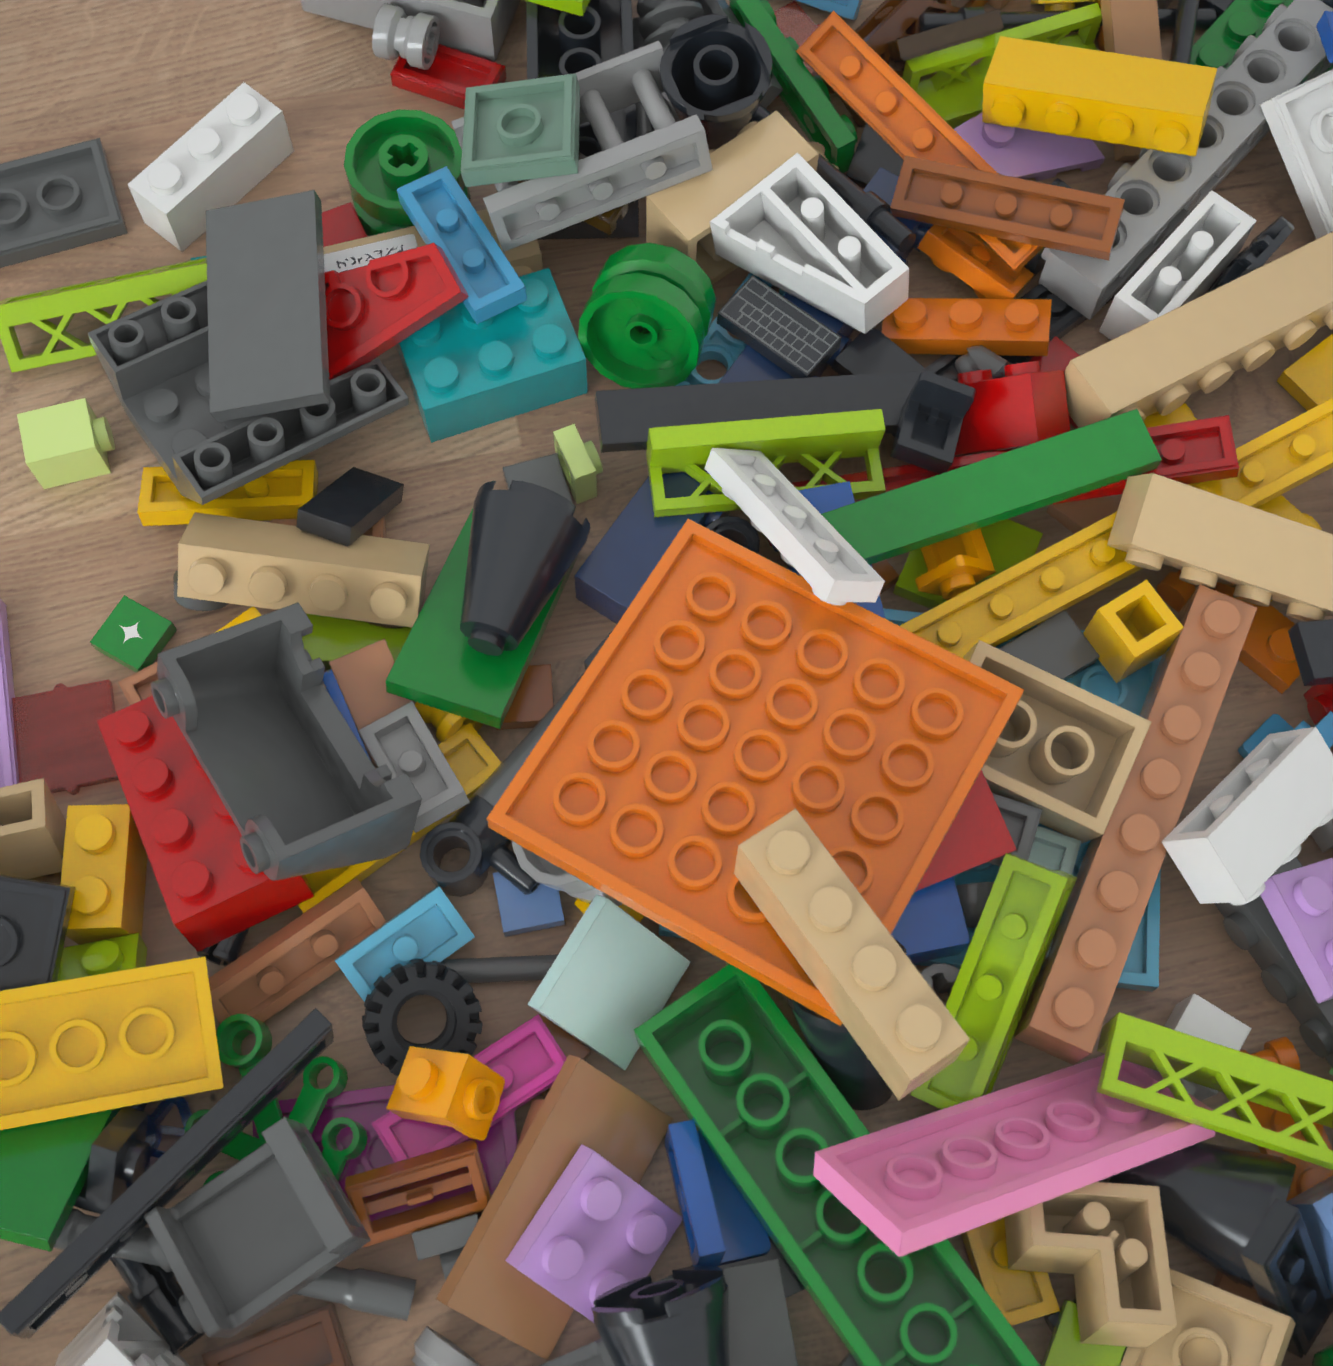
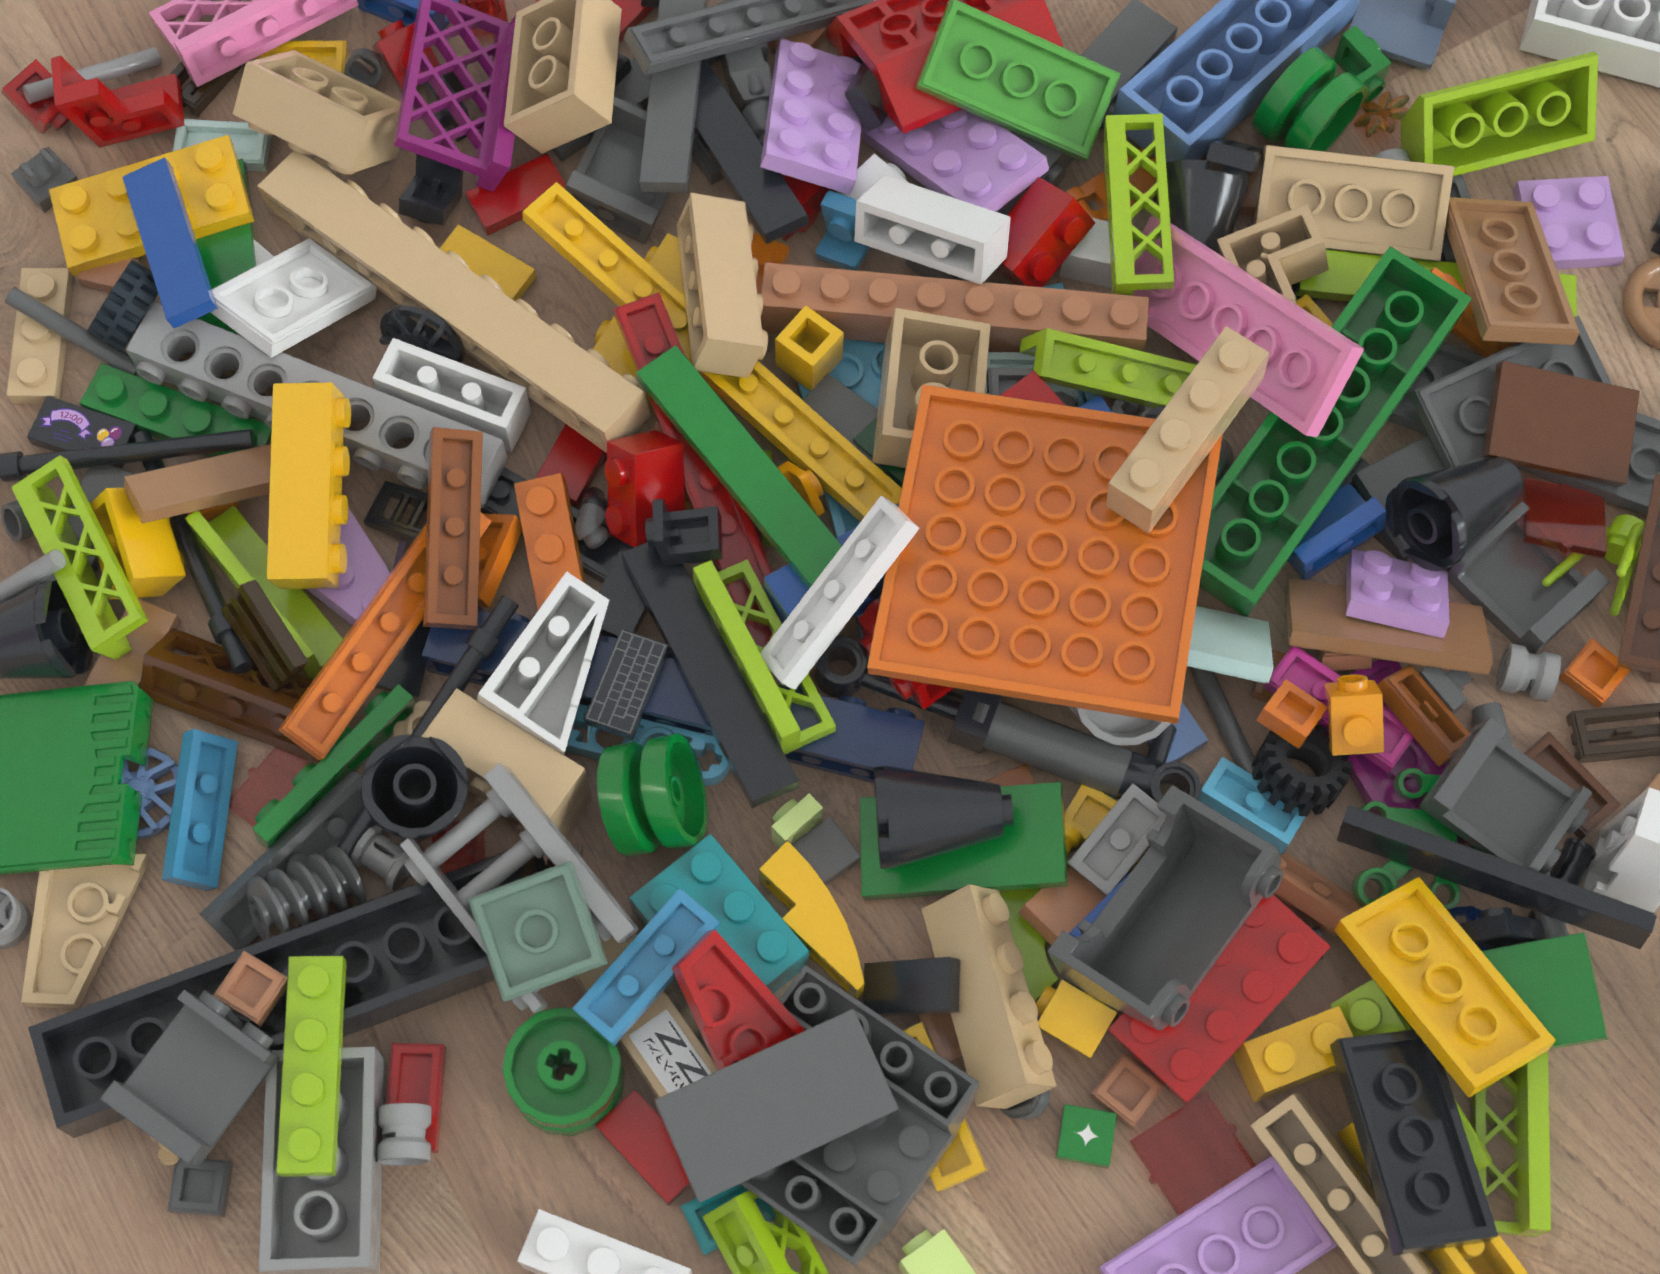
camera: 110 degrees left, 0 degrees up
(463, 448) = (813, 916): none -> yellow slope
(478, 1016) = (1292, 713): none -> orange plate
(1226, 965) = (1042, 234): none -> red brick

